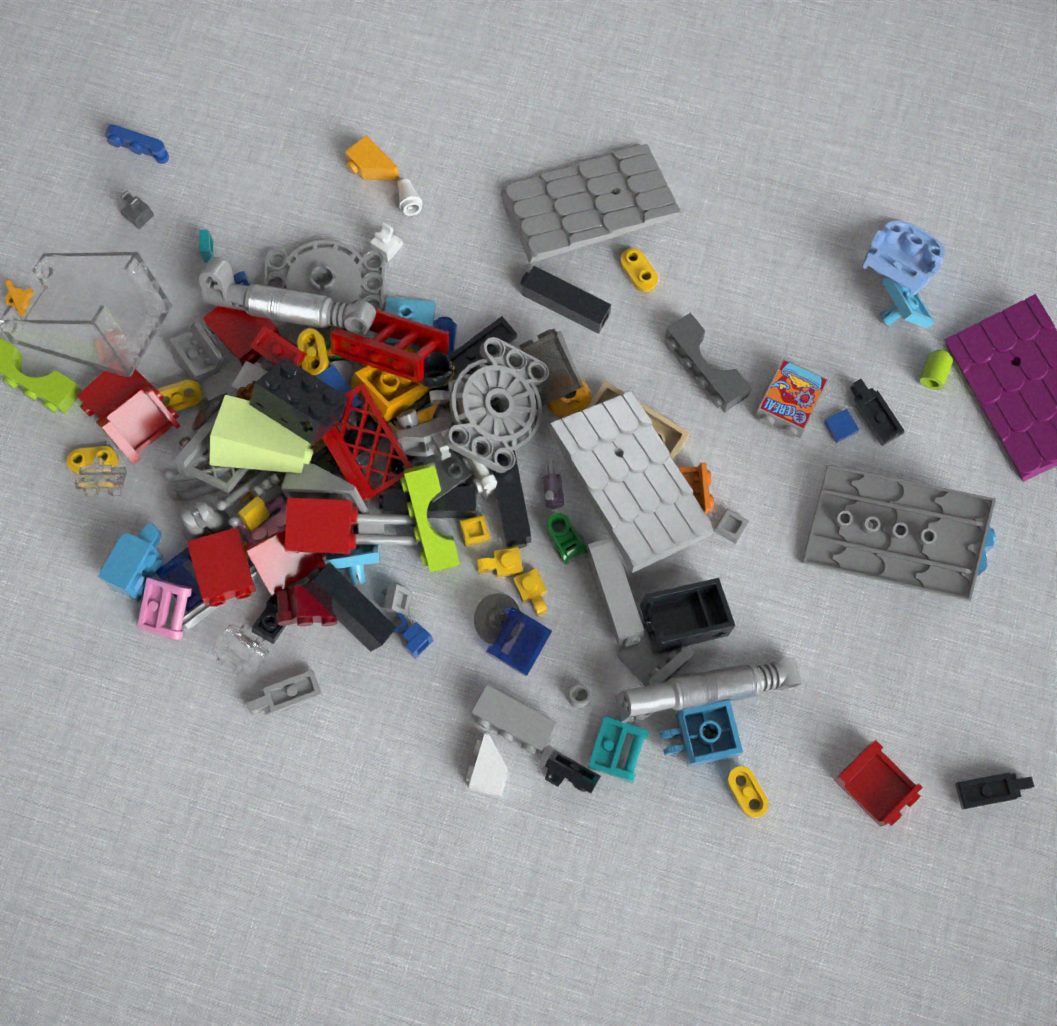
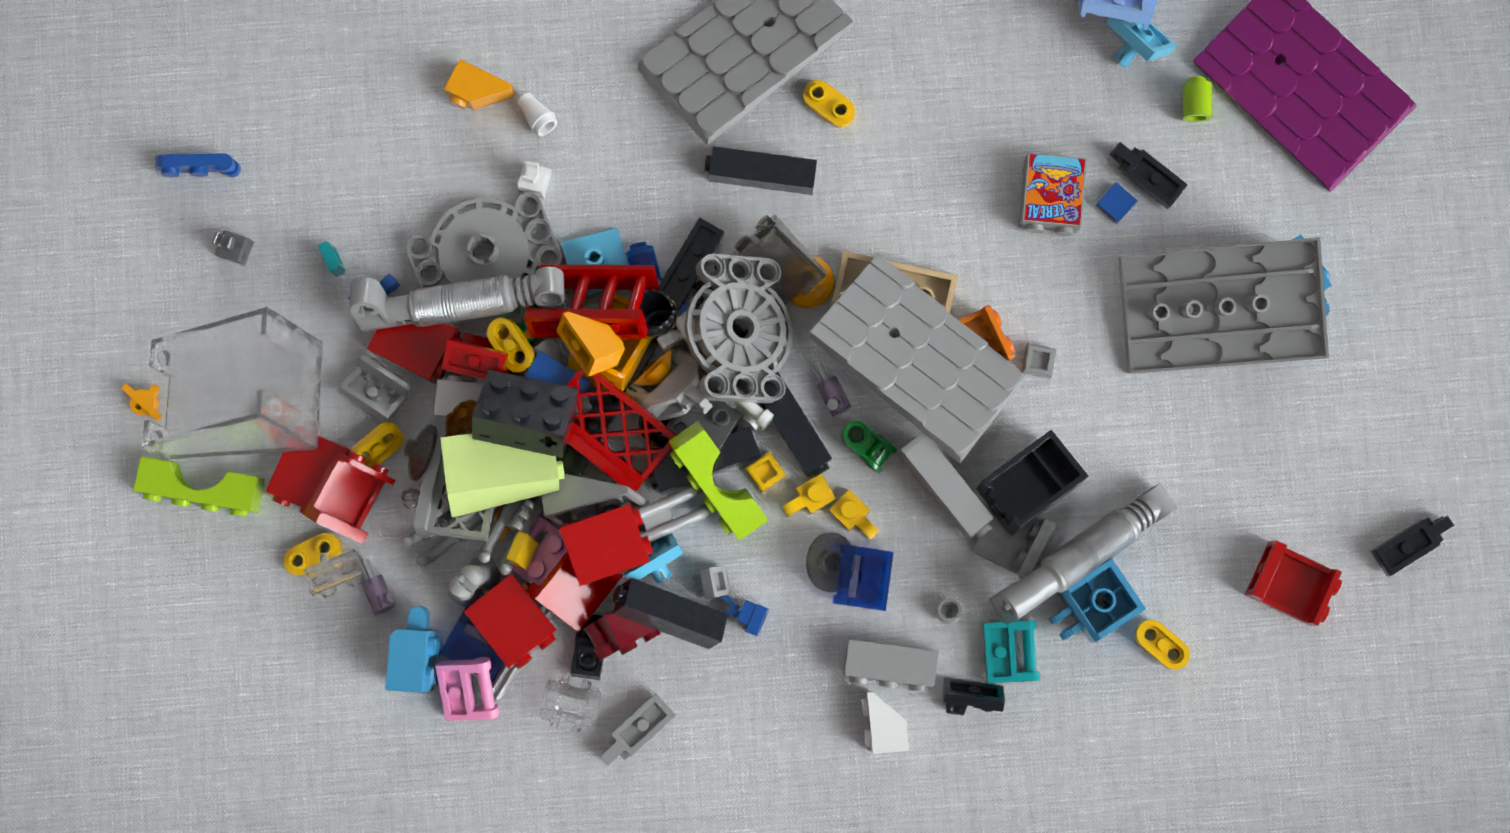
camera: 20 degrees left, 10 degrees up
(128, 505) = (376, 590): none -> clear purple piece
(373, 369) = (590, 343): none -> light orange slope
(408, 419) = (647, 380): light grey hinge -> none
(724, 386) = (974, 207): dark grey arch -> none

